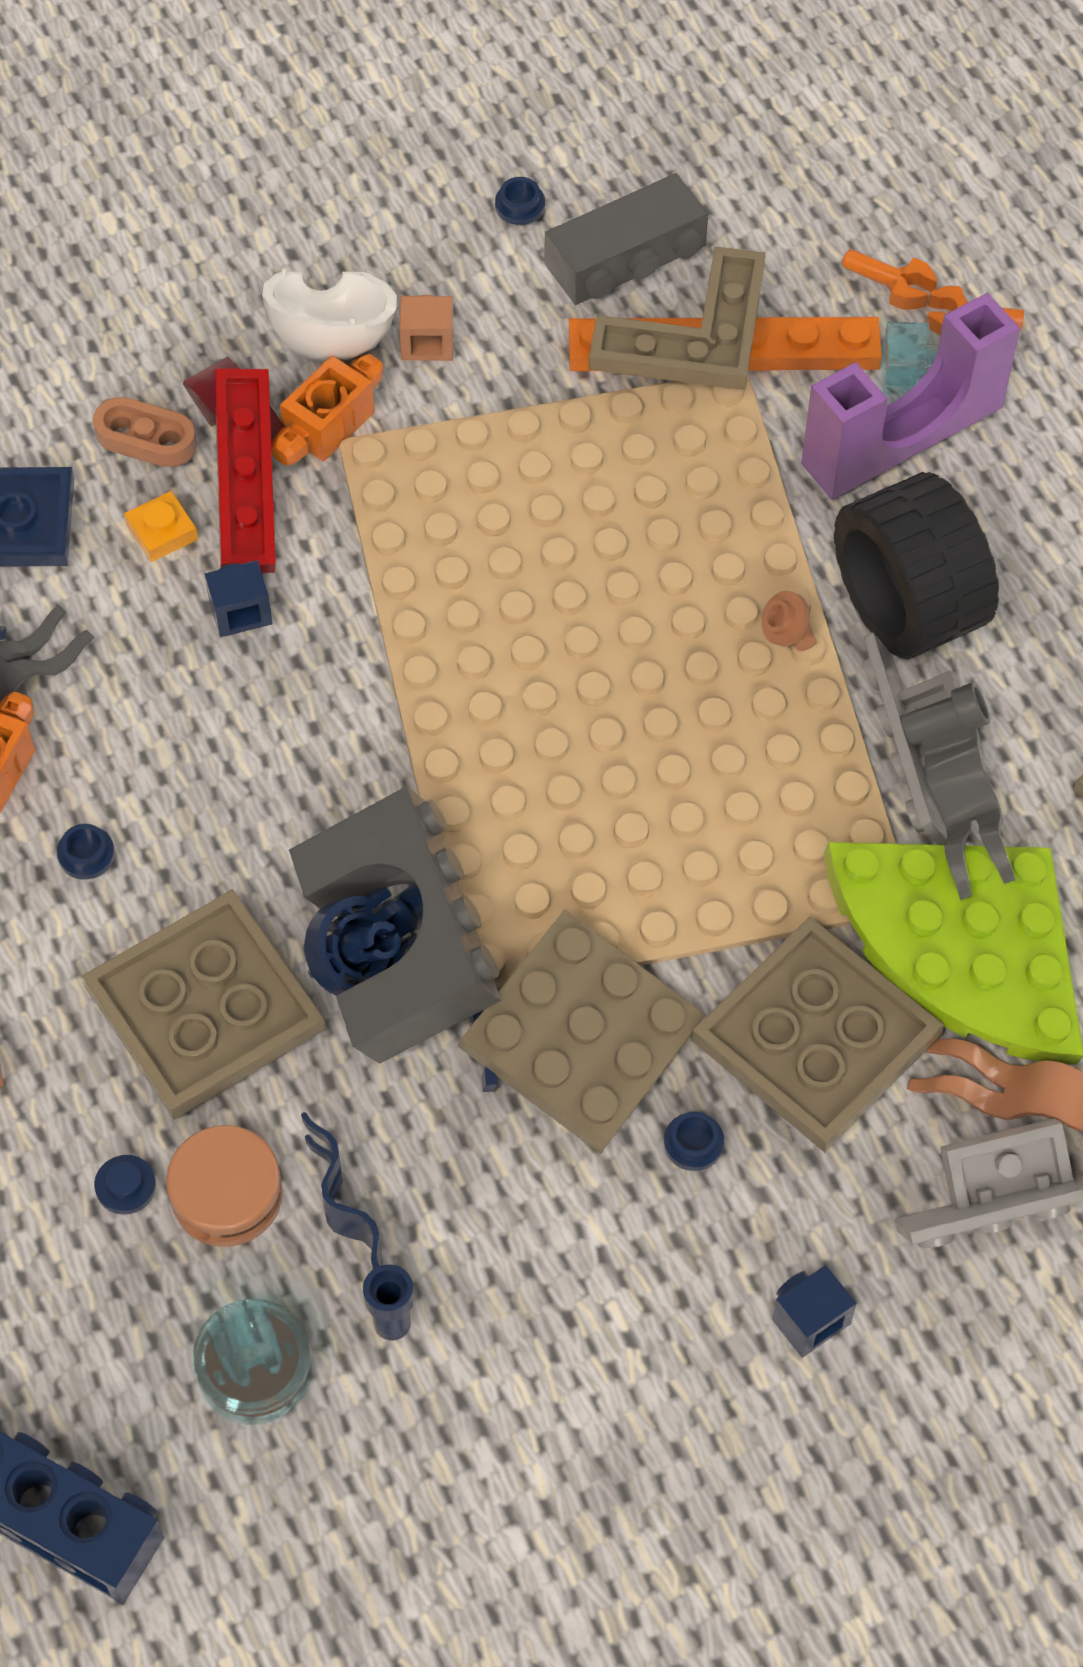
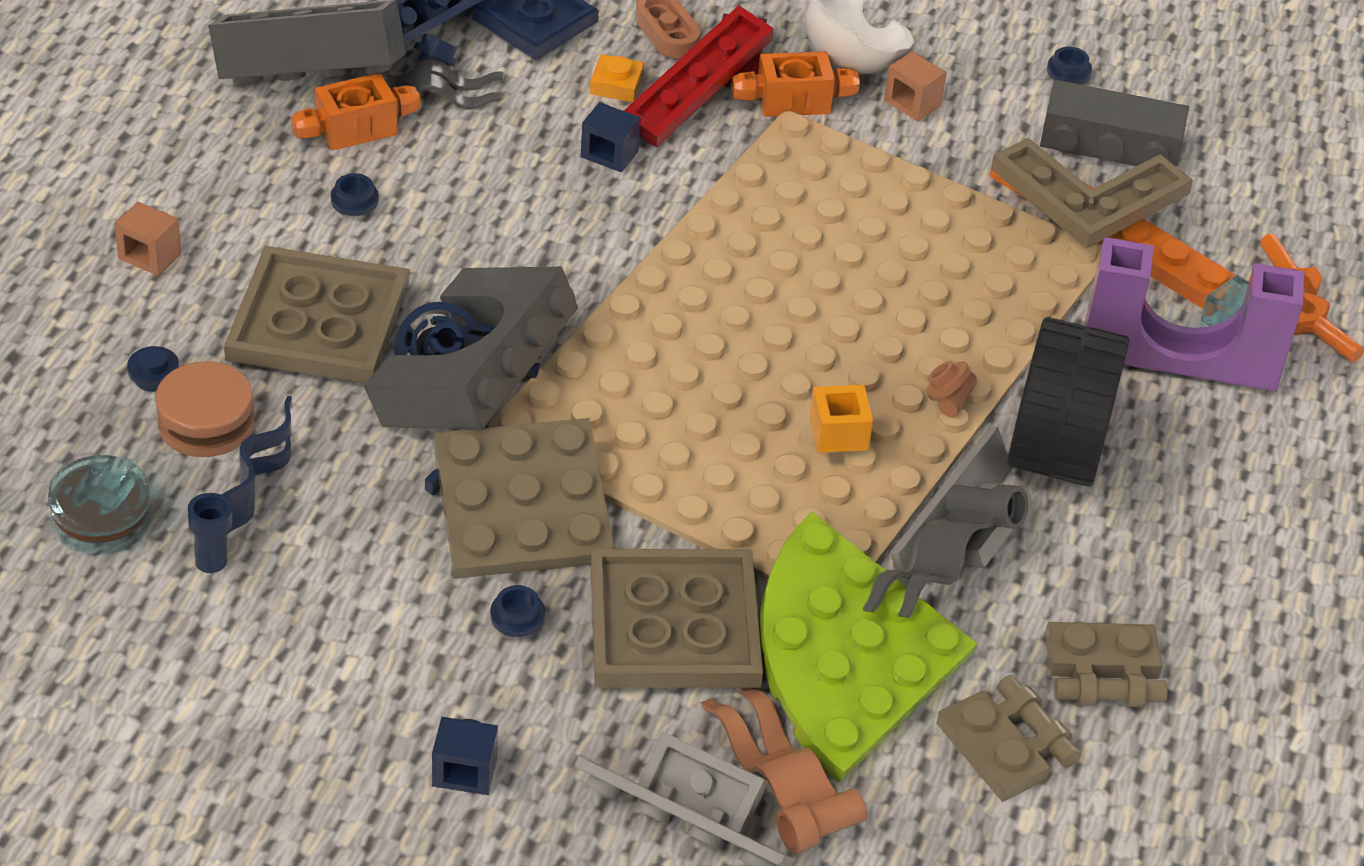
camera: 40 degrees right, 15 degrees down
(753, 731) = (841, 418): none -> light orange plate

